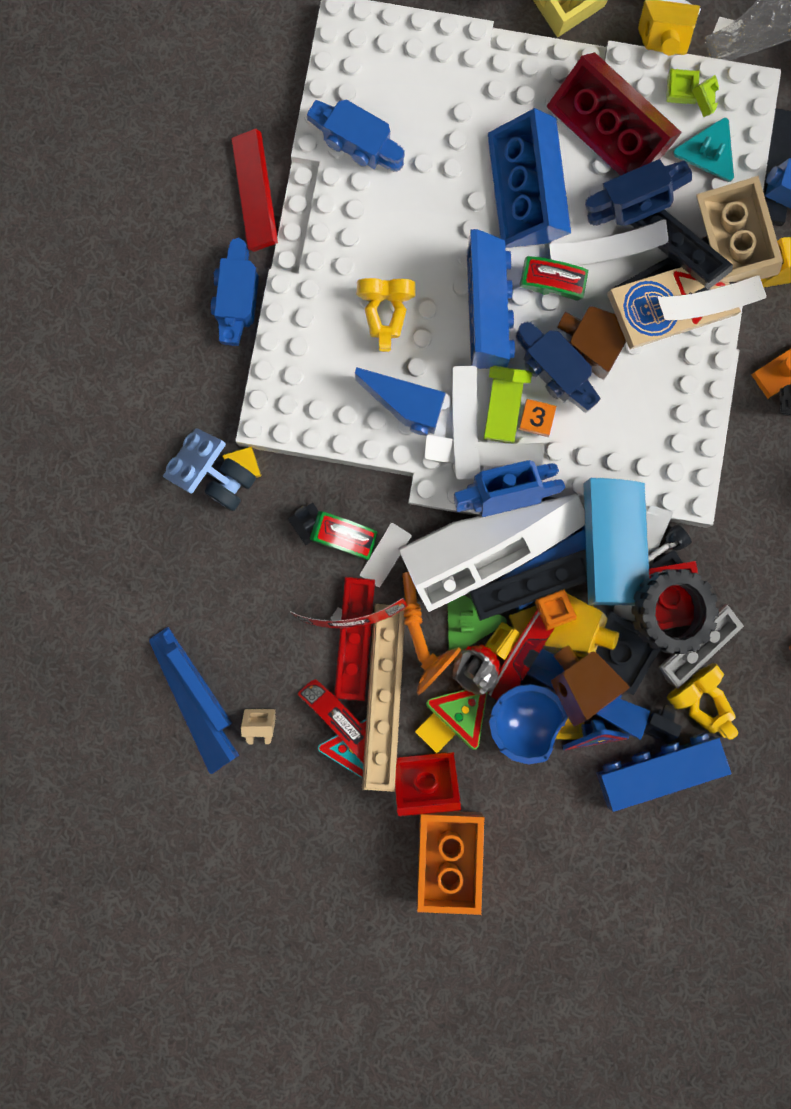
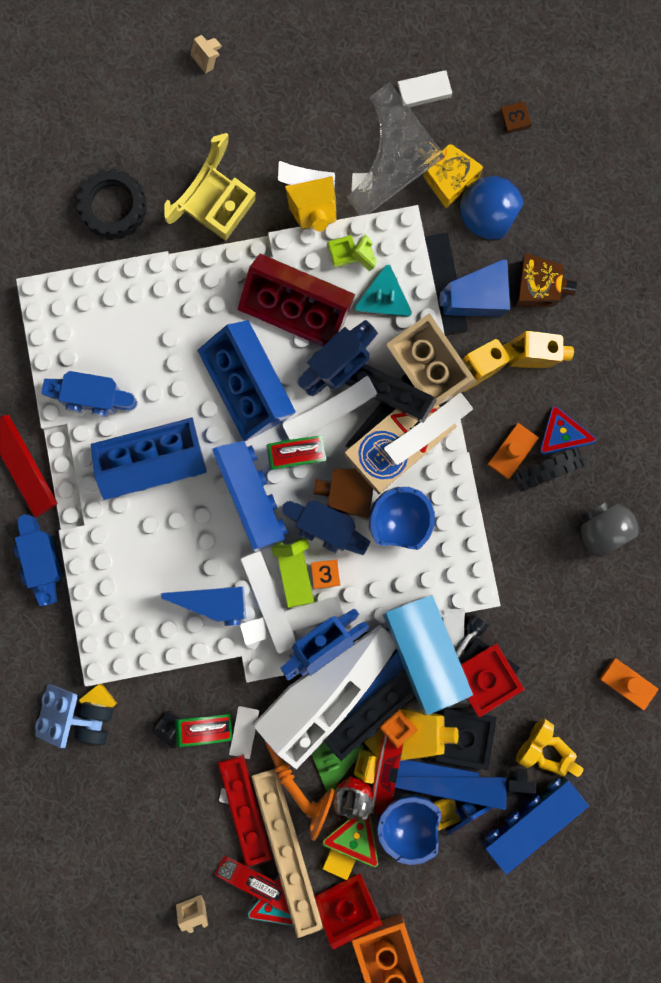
camera: 25 degrees left, 0 degrees up
(196, 701) = (134, 913): blue wedge -> none
(357, 622) = (259, 786): sticker -> none
(378, 290) = (154, 521): yellow piece -> none
(393, 226) = (147, 458): none -> blue slope
(585, 684) = (444, 783): reddish brown torso -> none
(645, 384) = (402, 518): none -> blue cylinder
(681, 667) = (527, 709): light grey slope -> none
(704, 611) = (518, 705): black tyre -> none

